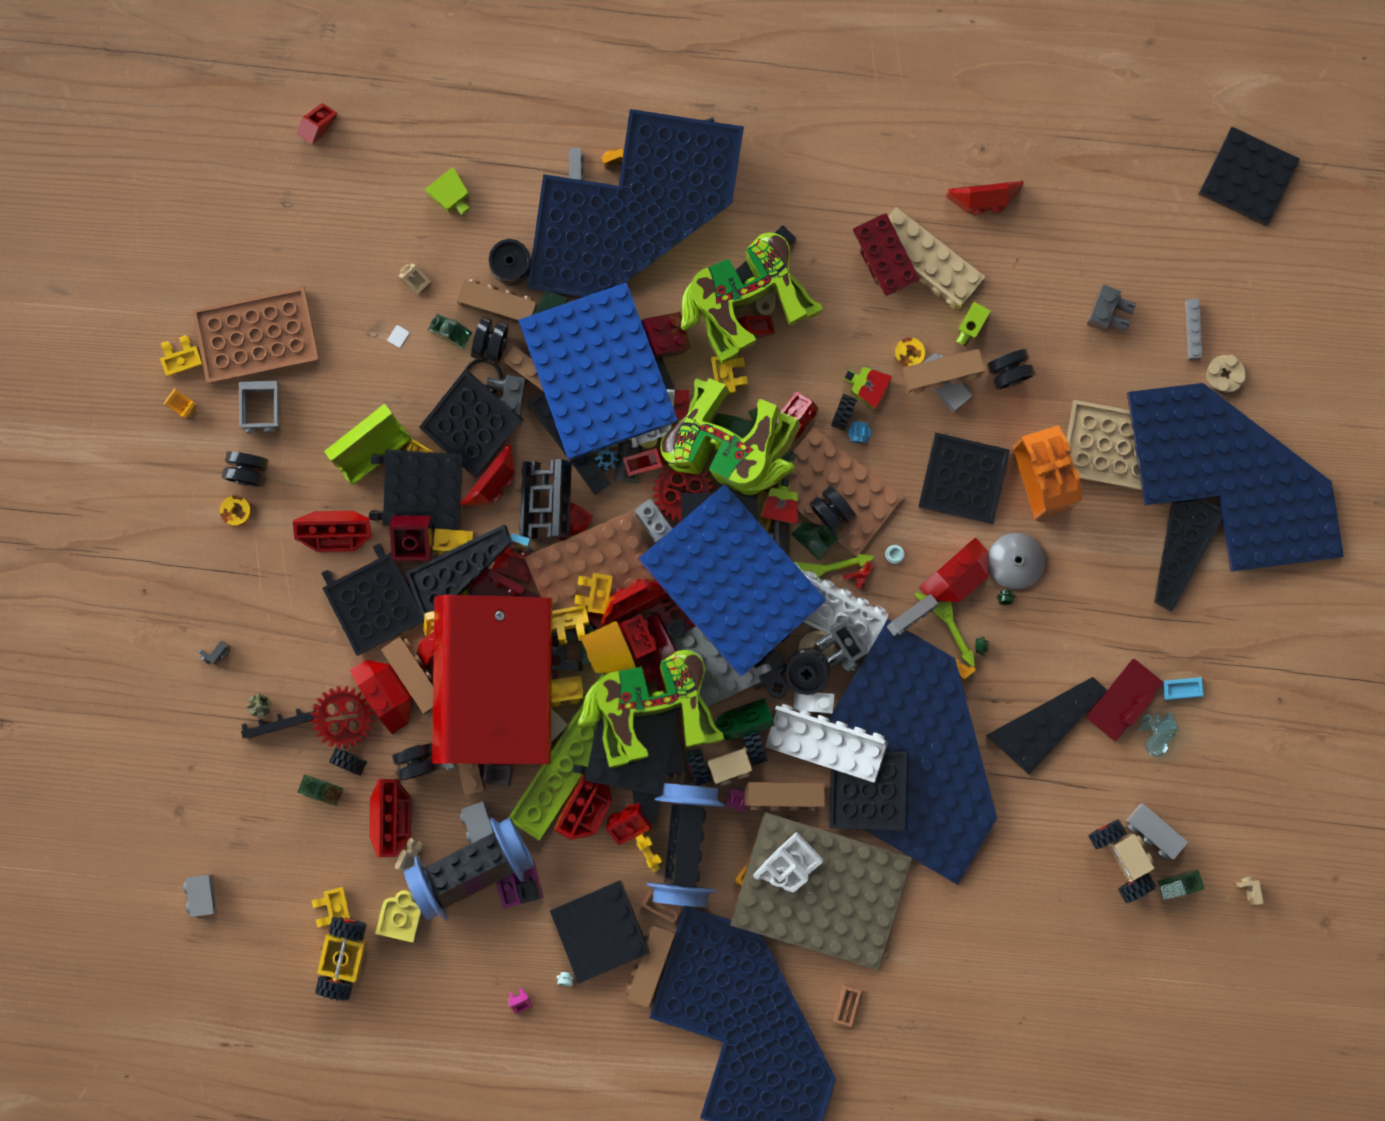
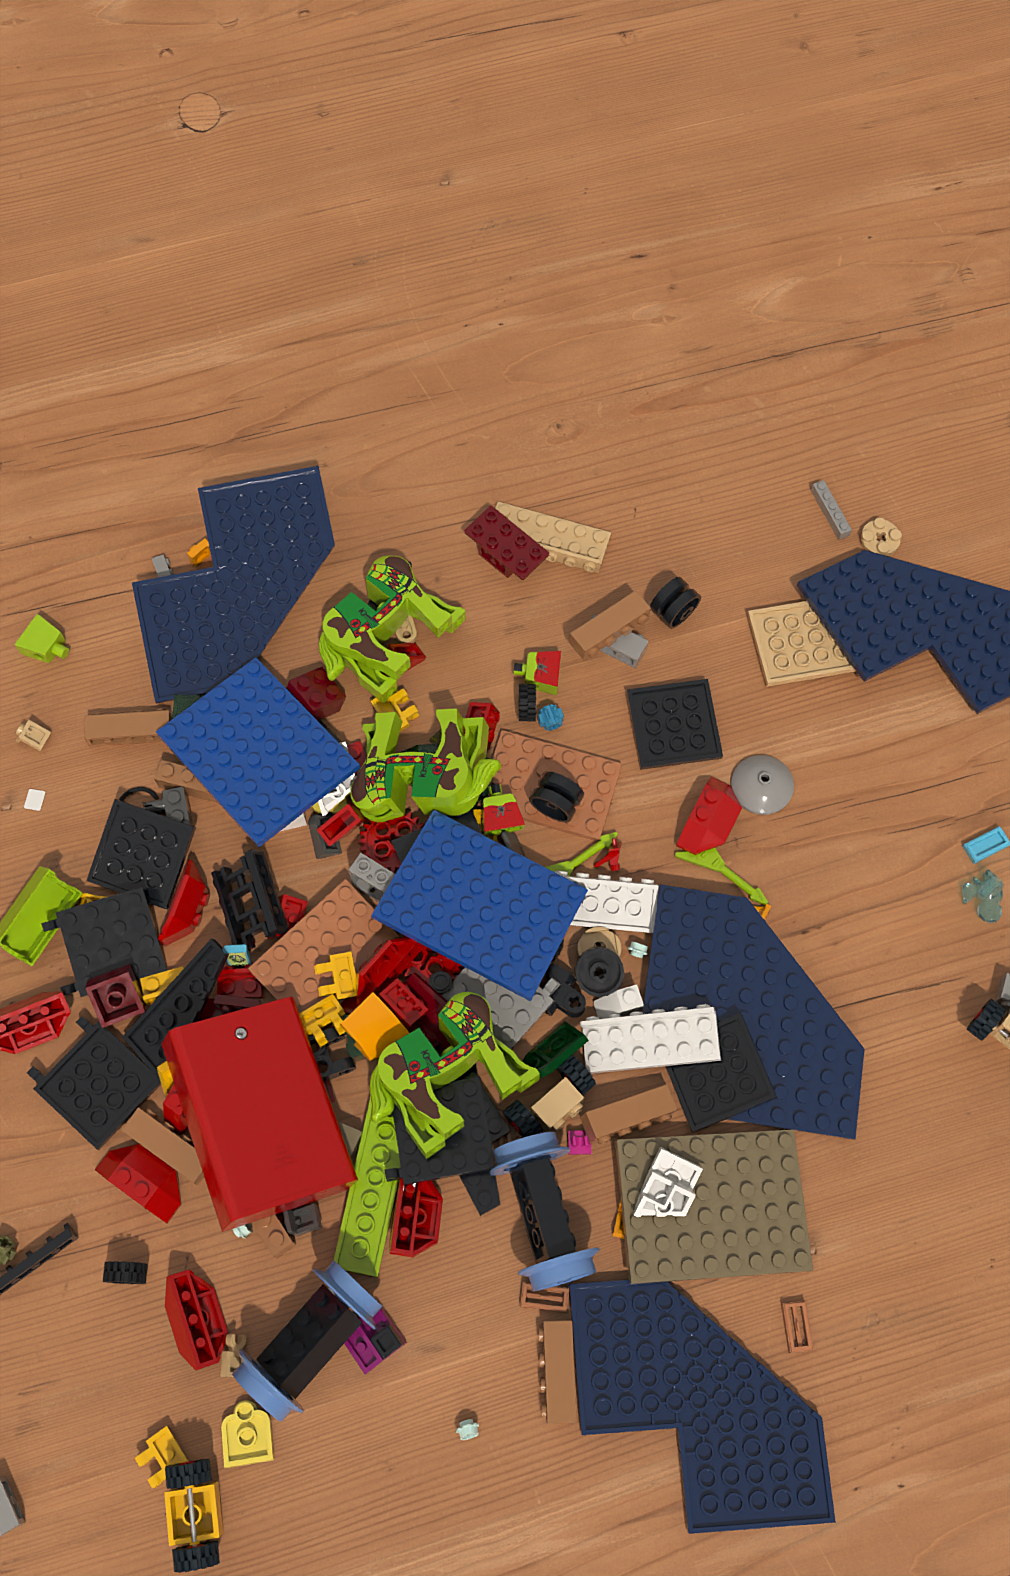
camera: 25 degrees left, 15 degrees down
(320, 789) = (103, 1319): clear green slope -> none
(339, 700) = (92, 1206): red gear -> none
(415, 761) = (203, 1241): black wheel -> none
(450, 330) = (88, 772): clear green slope -> none
(477, 821) = (298, 1282): light grey brick -> none
(489, 340) = (132, 764): black wheel -> none
(504, 252) = (128, 682): black wheel -> none
(520, 1002) = (425, 1480): dark pink tile -> none
(567, 689) = (347, 1096): yellow bracket -> none
(584, 464) = (273, 849): black plate -> none
(599, 931) = (486, 1355): black plate -> none
(607, 465) = (300, 833): dark azure gear -> none
(627, 824) = (470, 1217): red bracket -> none
(644, 844) = (514, 1246): yellow plate -> none
(815, 538) = (550, 836): clear green slope -> none
(848, 639) = (623, 918): dark grey brick -> none
(894, 554) = (637, 823): light aqua plate -> none
(909, 344) = (561, 621): yellow piece -> none
(912, 615) = (683, 871): light grey piece -> none
(977, 316) = (618, 574): lime torso -> none
(981, 646) = (766, 879): dark green plate -> none
(984, 197) = (578, 462): red wedge -> none
(1006, 597) = (768, 822): dark green plate -> none
(1037, 732) = (864, 943): black wing -> none
(1047, 472) = (757, 678): orange container -> none
(1104, 306) = (738, 518): dark grey brick -> none
(1124, 700) = (935, 878): dark red bracket -> none
(1186, 539) = (919, 700): black wing -> none
(1249, 176) = (816, 364): black plate -> none

